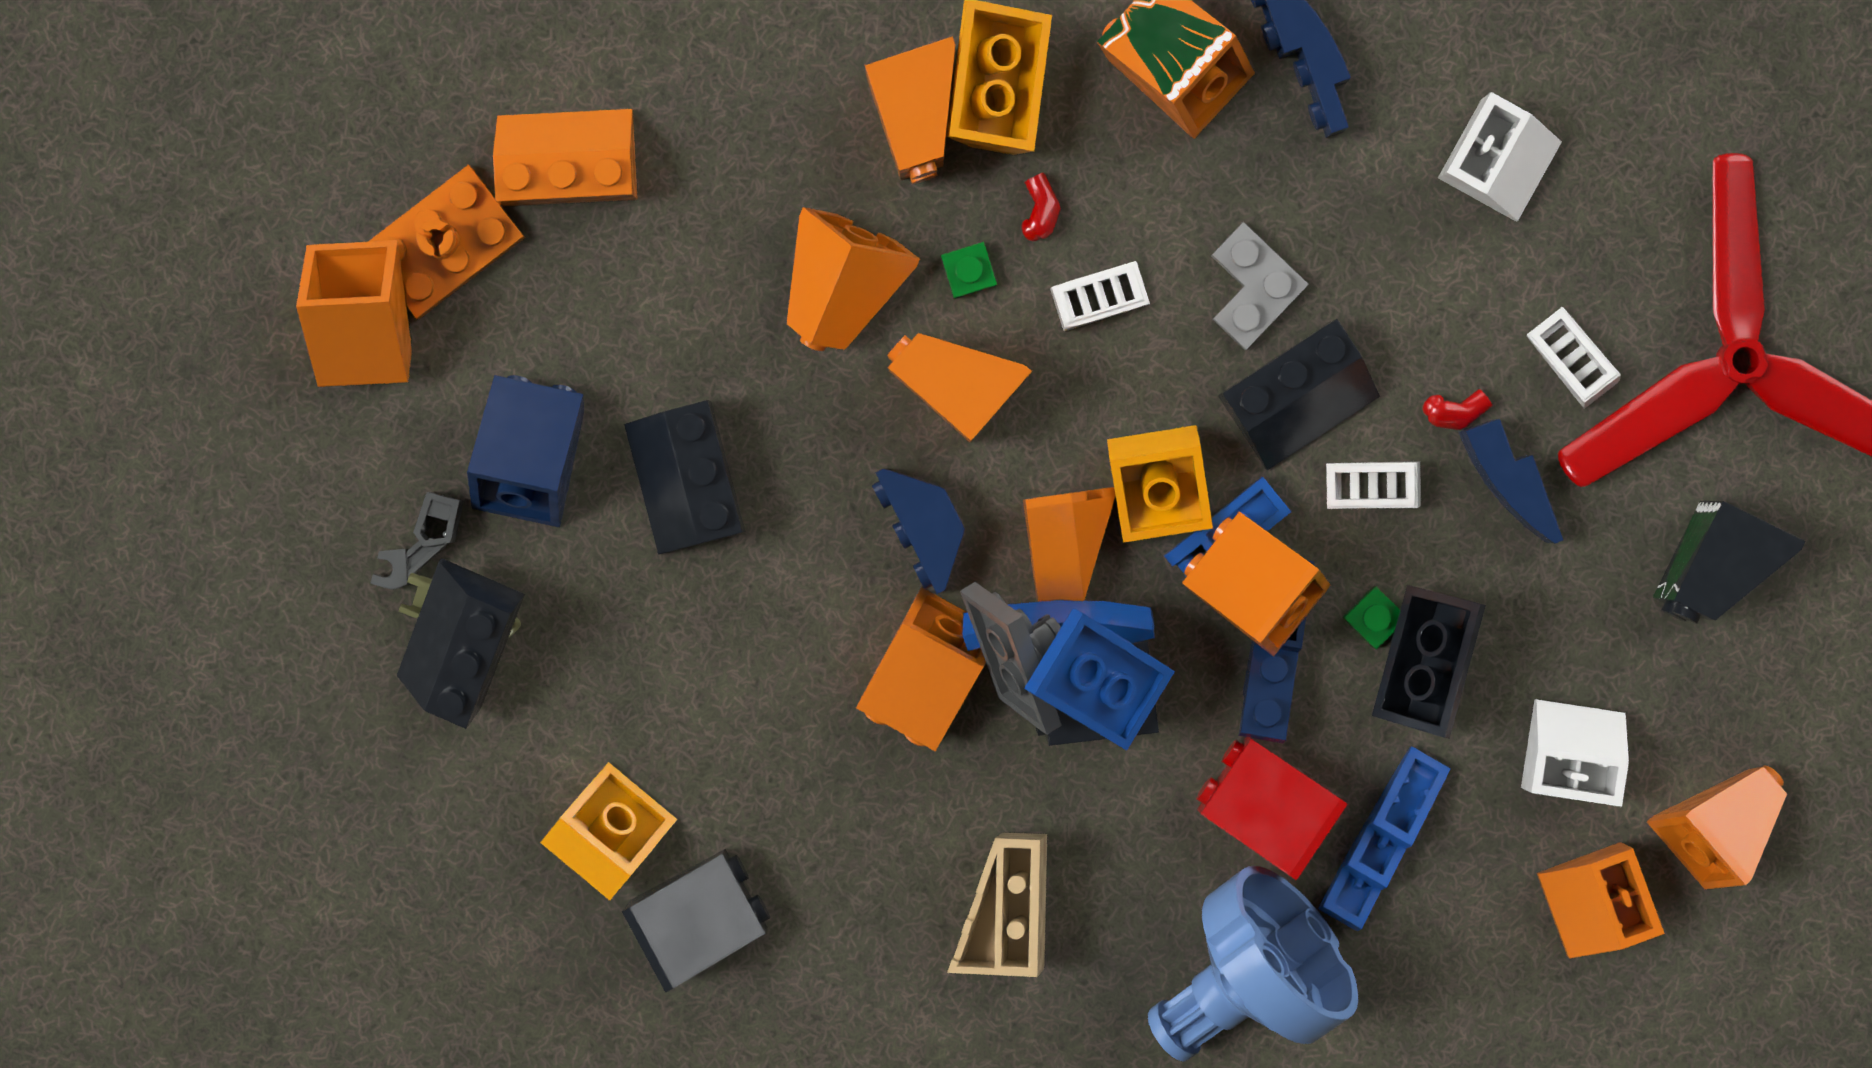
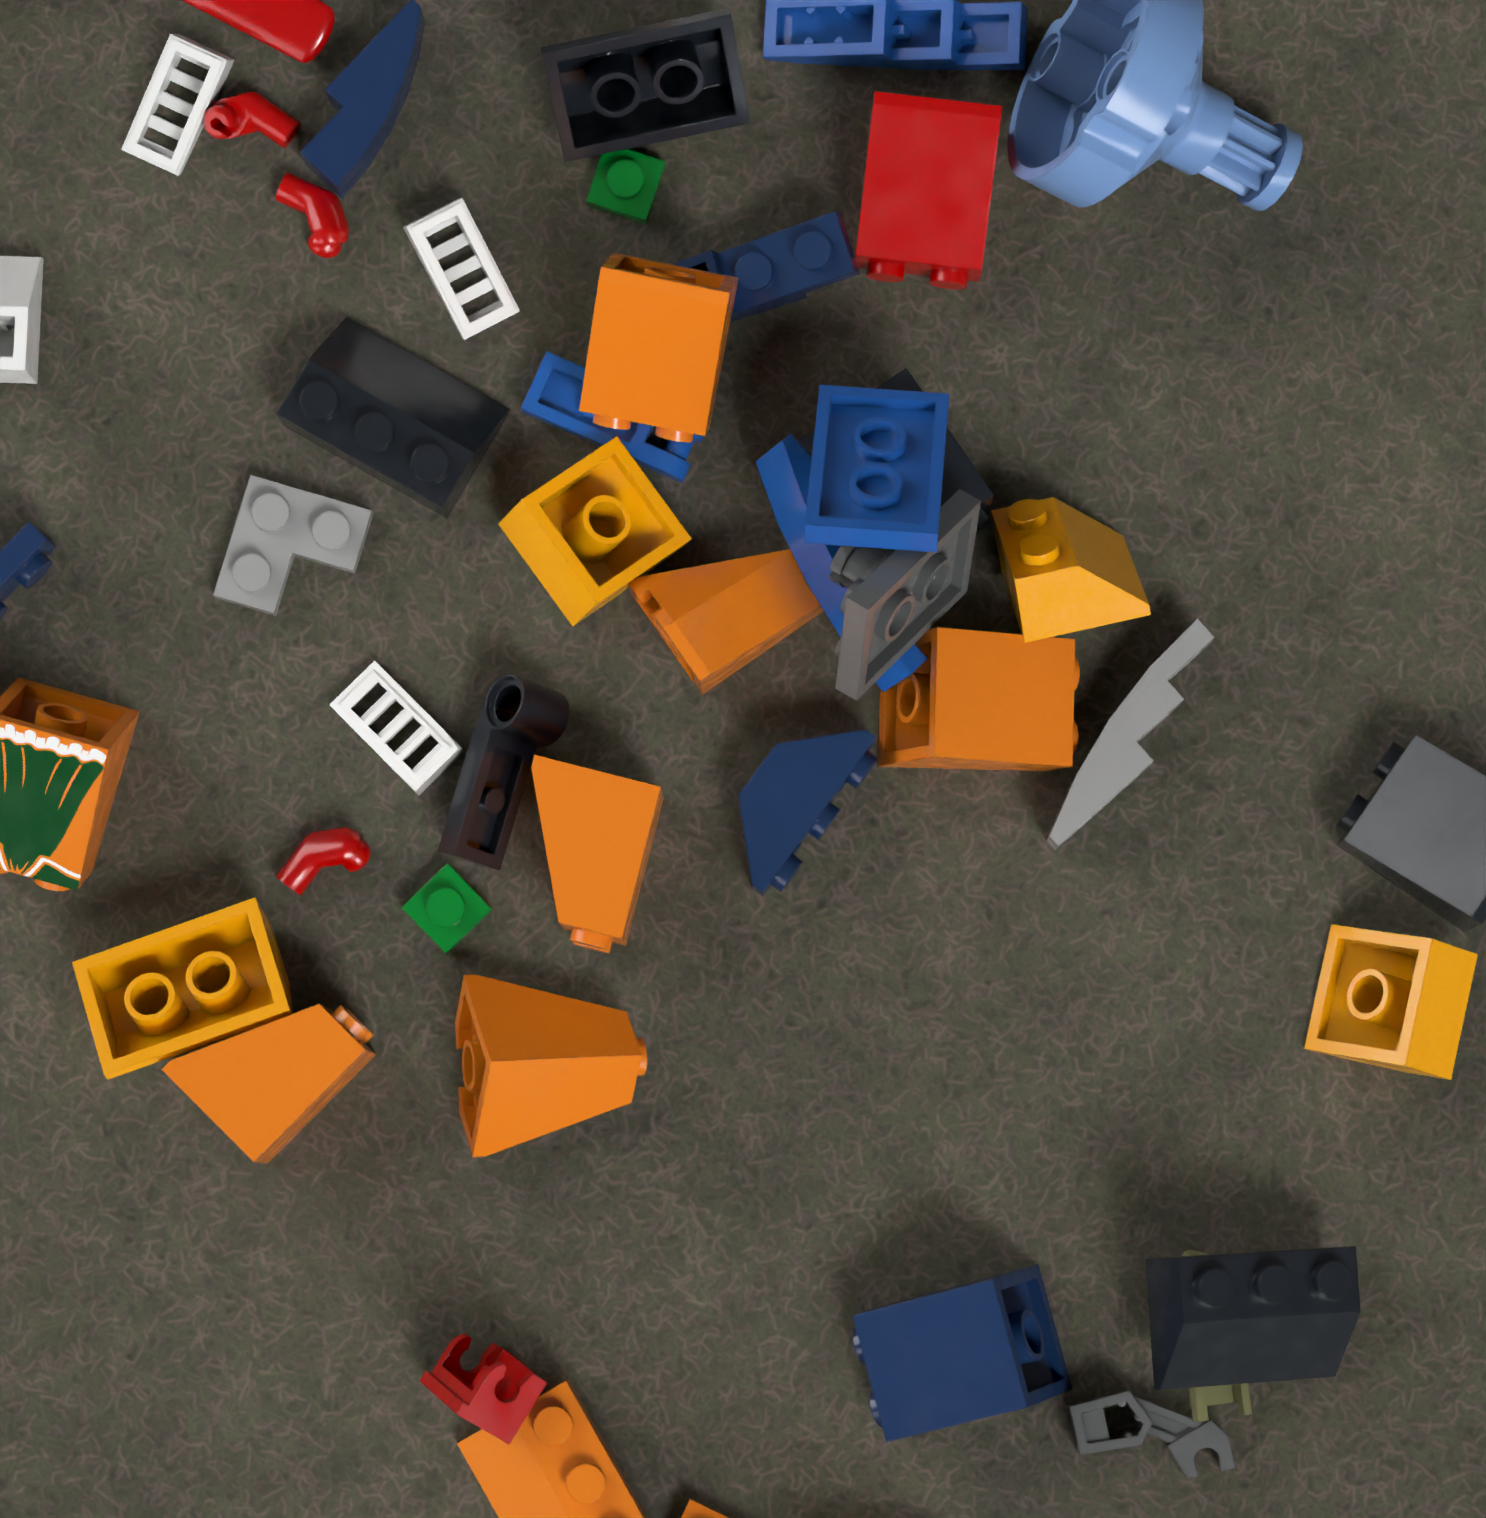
camera: 115 degrees left, 5 degrees down
(648, 141) = (492, 1394): none -> red hinge
(684, 477) = (893, 1134): black slope -> none
(849, 738) = (1116, 755): none -> light grey slope
(981, 767) = (1064, 569): none -> light orange slope
(1008, 911) = (1230, 446): tan wedge -> none
(1042, 346) = (497, 765): none -> black plate
(1543, 399) = (248, 114): none -> red arm

